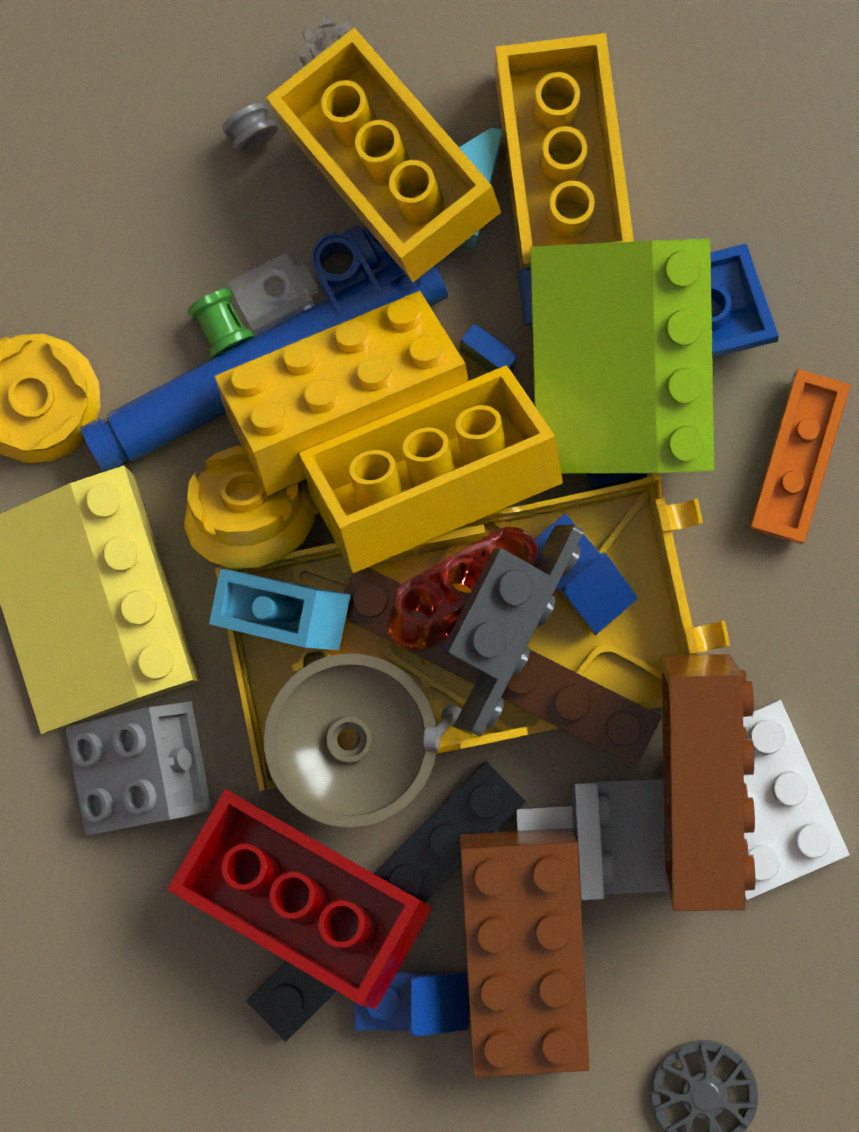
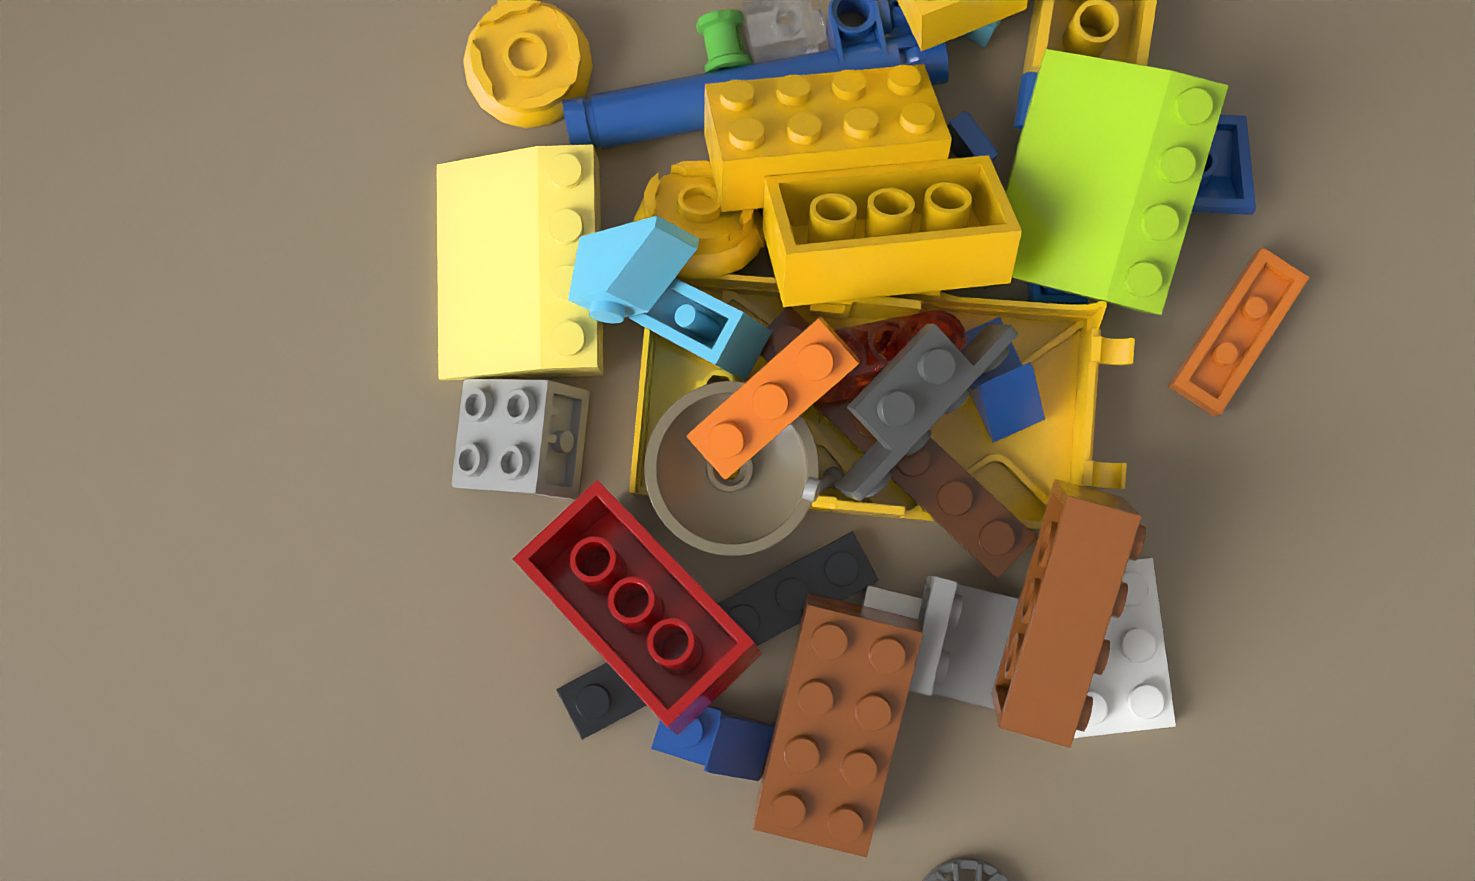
camera: 15 degrees right, 0 degrees up
(193, 579) = (628, 267): none -> medium azure slope
(369, 664) = (773, 398): none -> orange plate

